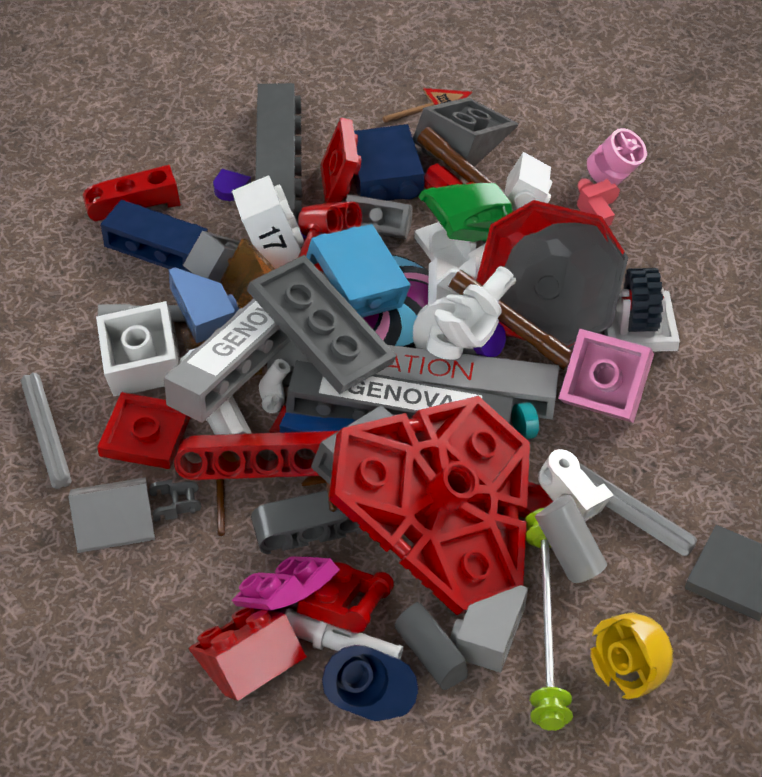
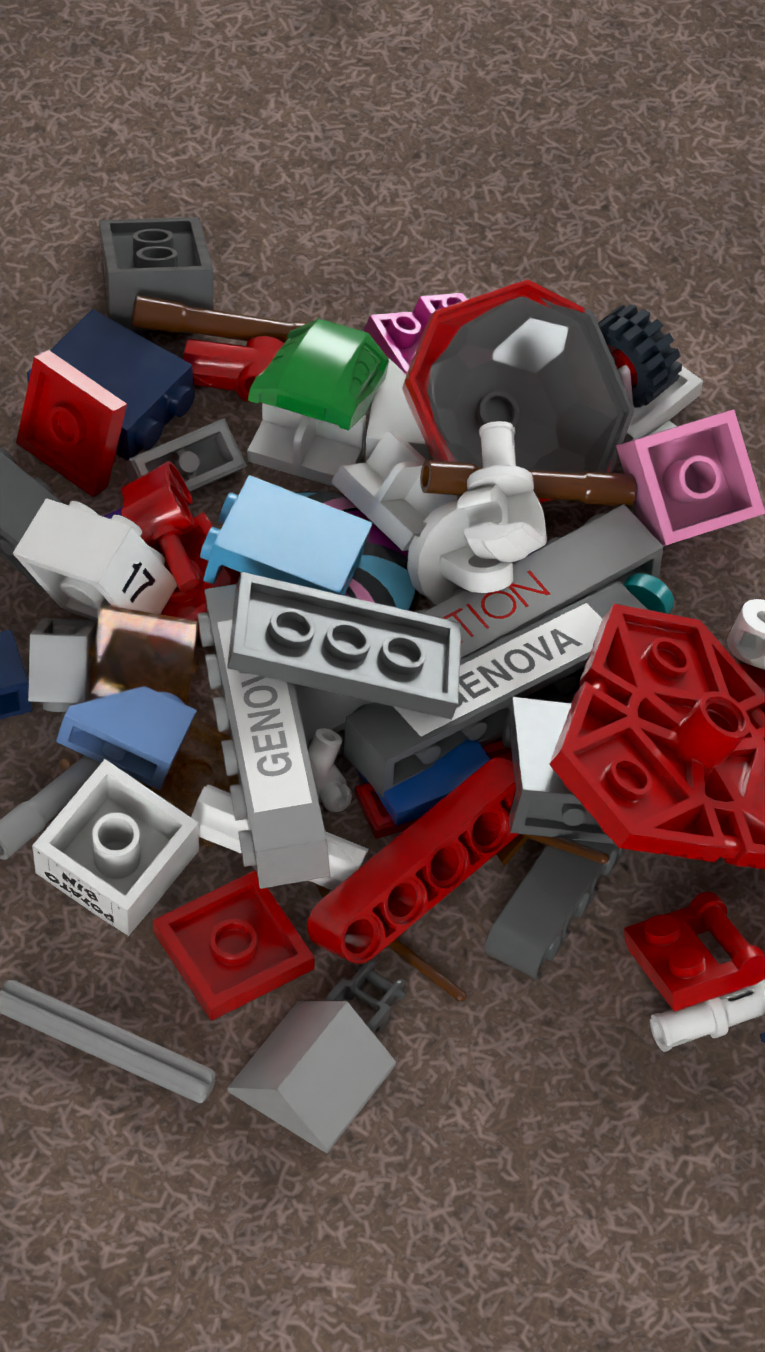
camera: 45 degrees left, 5 degrees up
(248, 651) = (664, 1097): slope -> none
(293, 581) = (630, 989): dark pink slope -> none
(436, 97) = (67, 244): medium nougat piece -> none
(528, 182) = (329, 290): white brick -> none
(596, 197) = (415, 267): coral piece -> none
(617, 157) = (392, 189): bright pink wheel -> none

